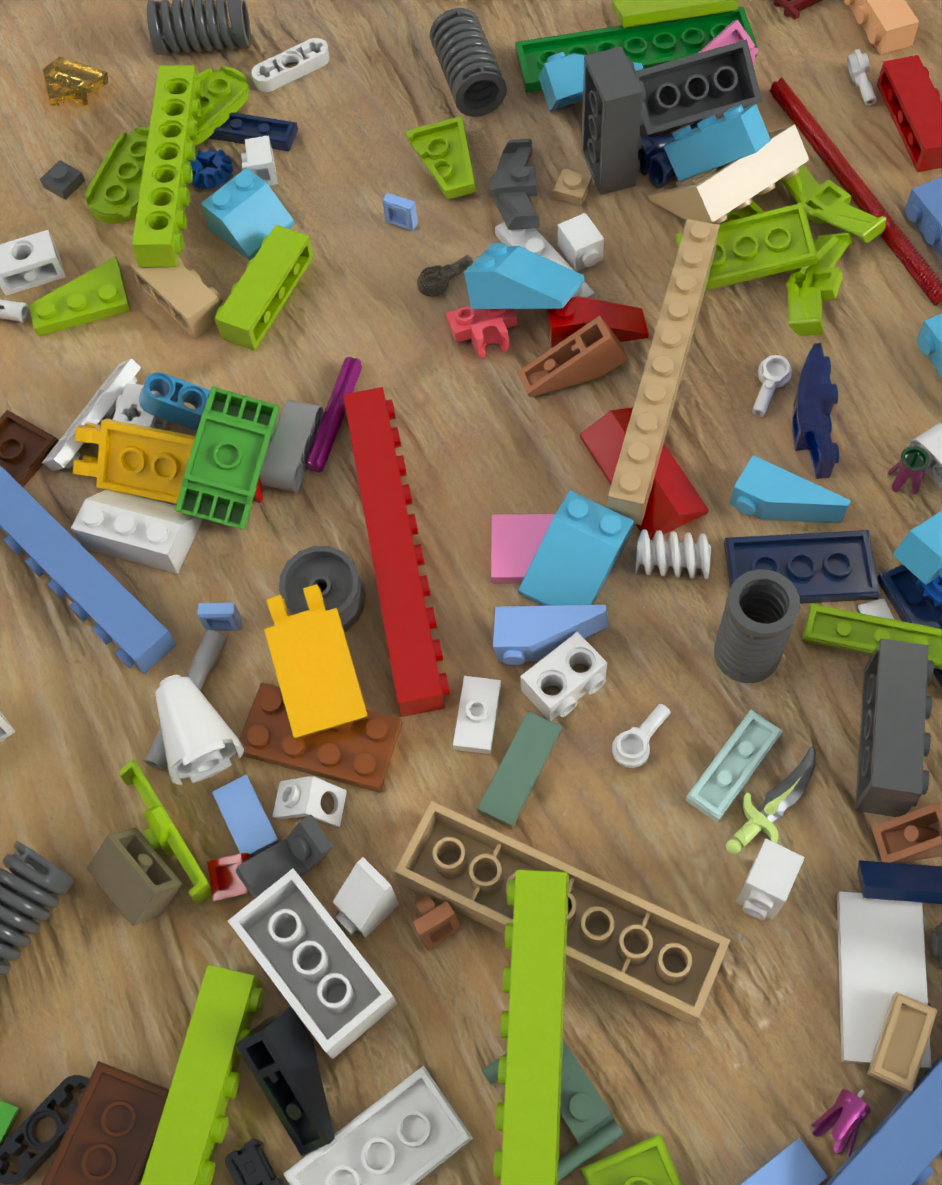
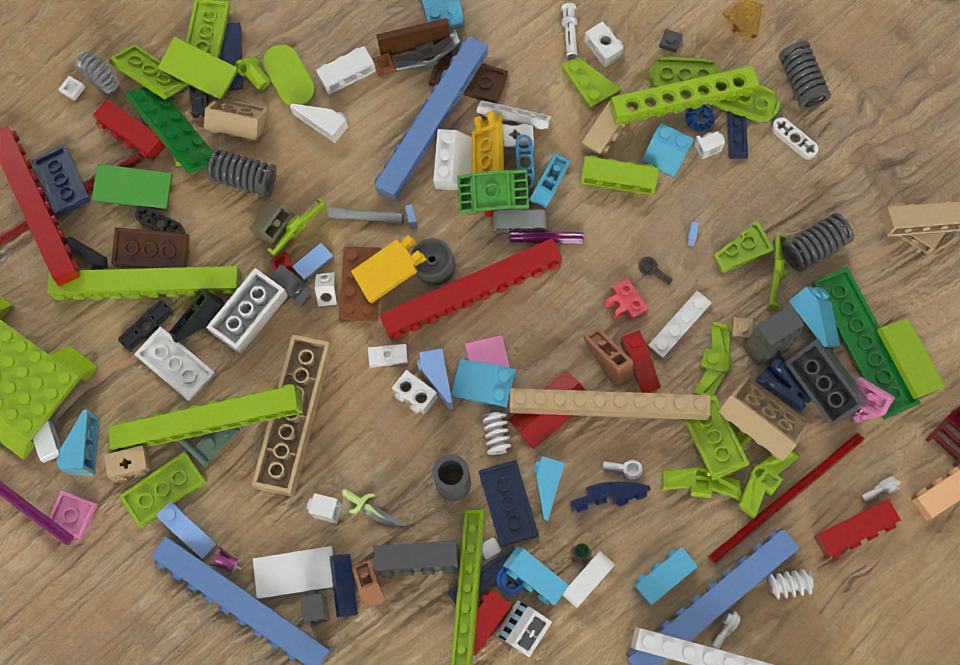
camera: 75 degrees right, 10 degrees up
(193, 732) = (344, 223): white cone -> none
(237, 378) = (549, 181): none -> medium azure slope
(364, 899) = (281, 326): white slope -> none
(435, 922) = (277, 360): nougat tile -> none
(498, 121) = (779, 272): none -> lime plate
(513, 185) = (729, 293): dark grey plate -> none
(519, 280) = (650, 313): medium azure slope -> none
(519, 769) = (363, 383): sand green tile -> none
(580, 242) = (696, 341): white brick -> none
(621, 229) = (715, 360): none -> lime plate
(632, 746) = (386, 434): white plate -> none
(717, 141) = (773, 401): medium azure brick -> none
(734, 766) = (388, 486): light aqua tile -> none
(902, 1042) = (264, 583): tan tile -> none

